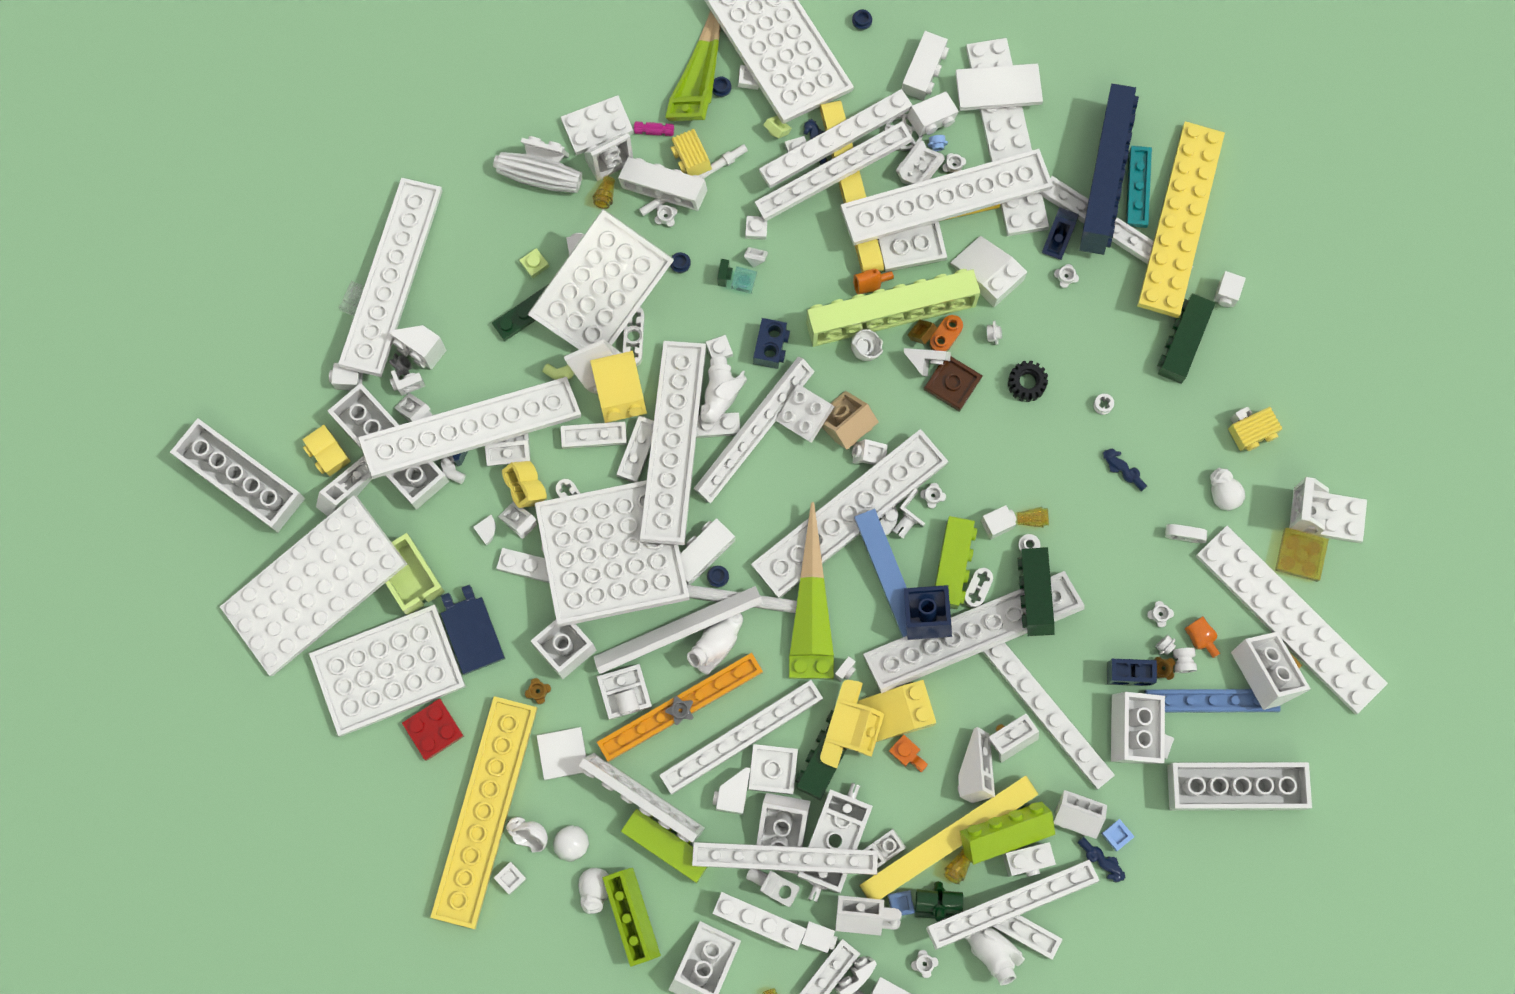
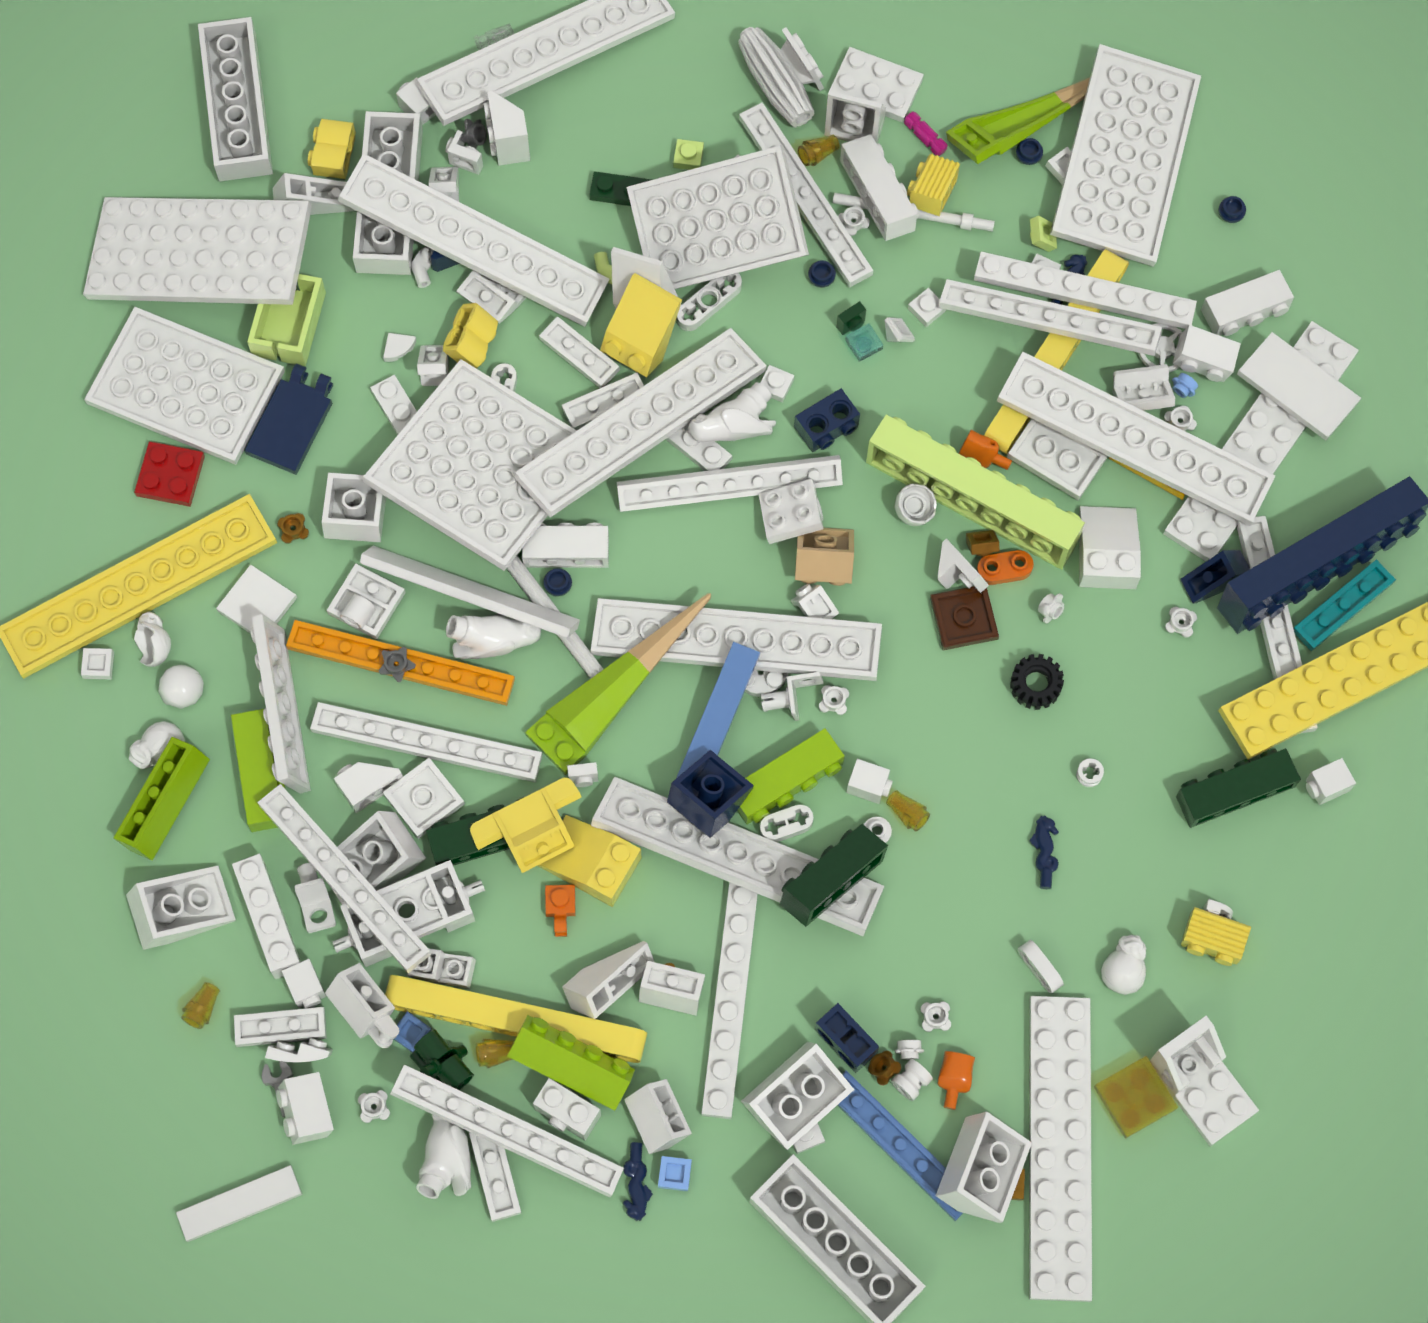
camera: 45 degrees right, 5 degrees down
(653, 231) = (810, 199): none -> white plate

